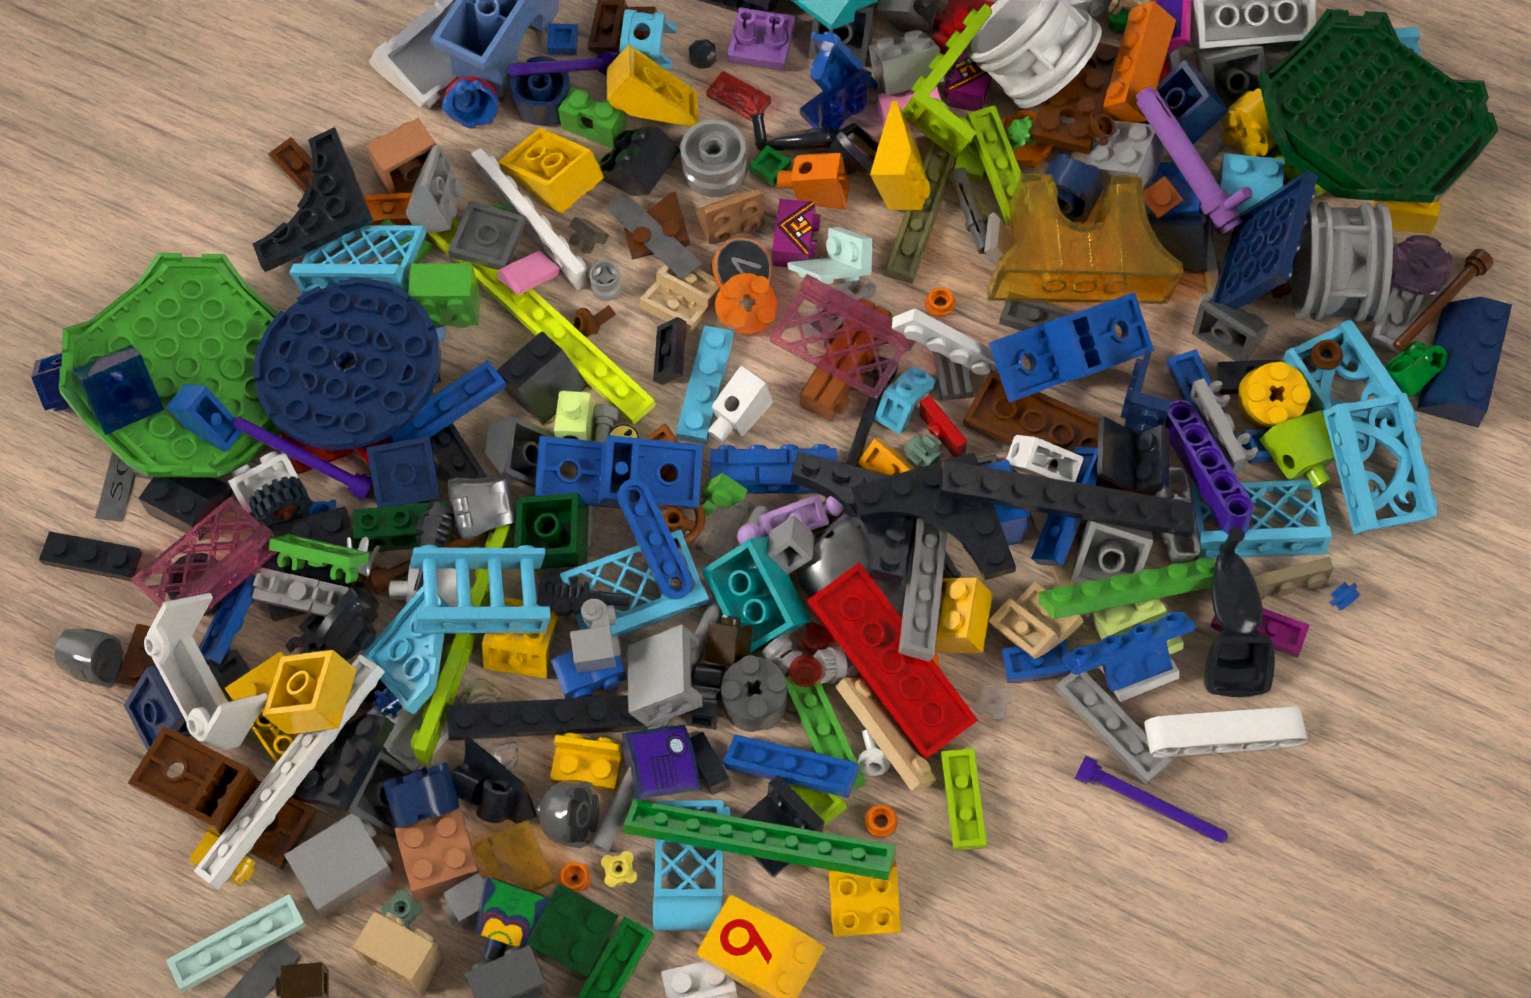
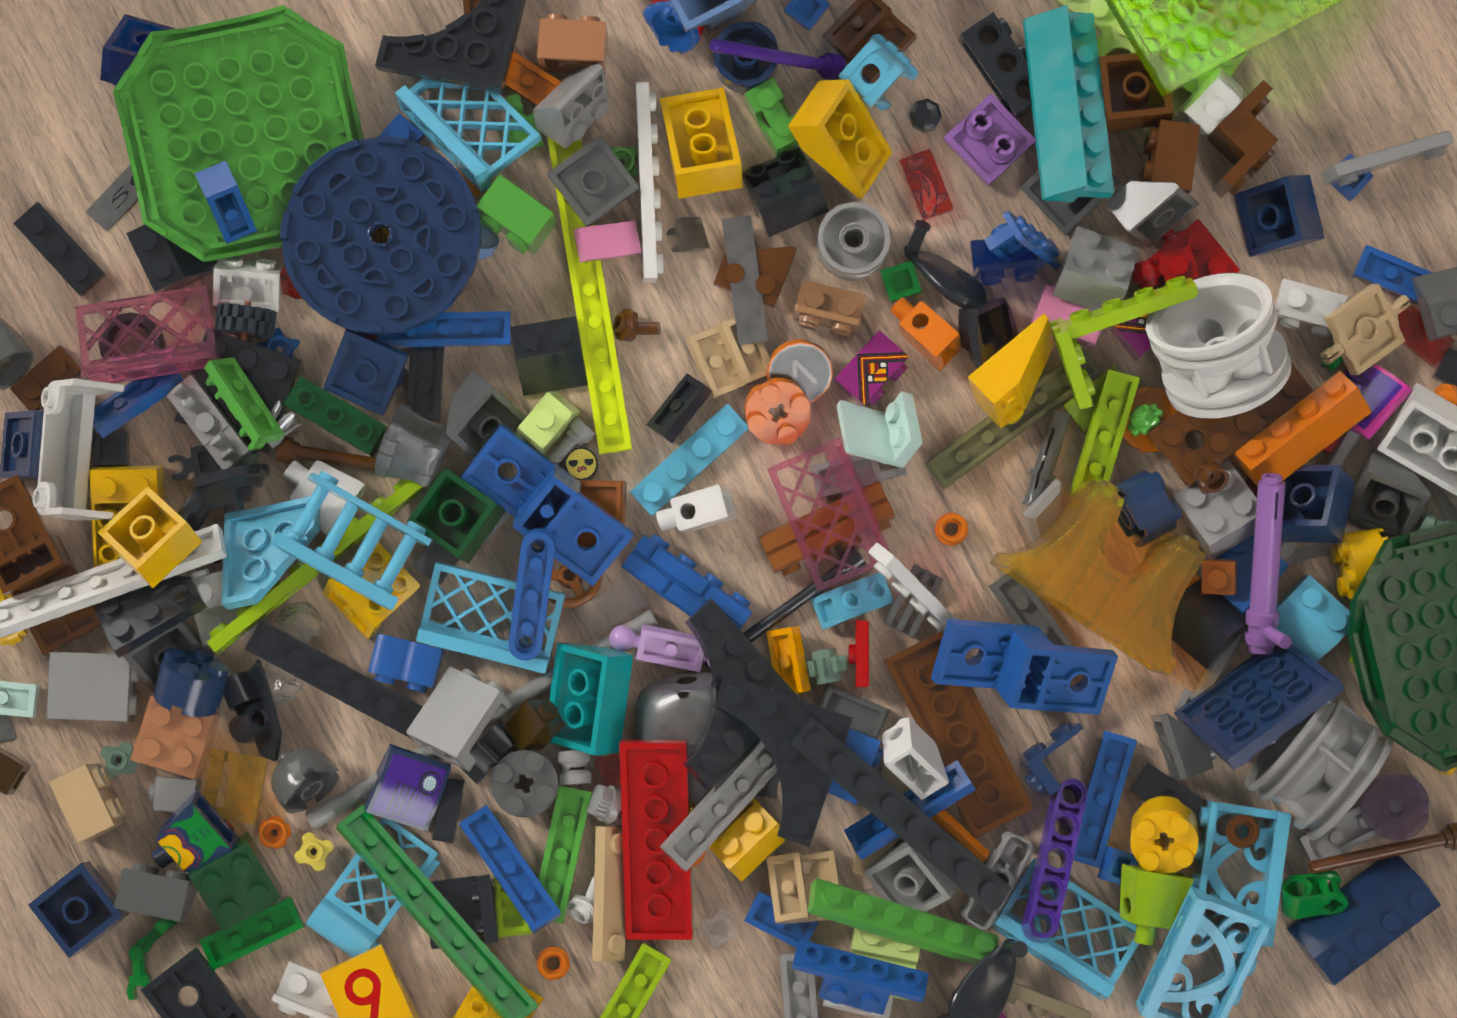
camera: 30 degrees right, 20 degrees up
(118, 389) = (164, 125): clear blue slope -> none
(357, 483) = (325, 345): dark purple piece -> none
(386, 703) = (212, 582): clear blue plate -> none
(433, 530) = (350, 451): black piece -> none
(568, 598) = (432, 595): black piece -> none
(587, 761) = (349, 741): yellow bracket -> none
(595, 646) = (420, 656): light grey brick -> none
(605, 280) = (673, 291): light grey wheel -> none
(722, 492) = (623, 585): bright green plate -> none
(791, 545) = (646, 677): light grey brick -> none
(805, 670) = (578, 798): clear red plate -> none
(1133, 459) = (994, 808): black bracket -> none
(1220, 423) = (1096, 831): light grey plate -> none

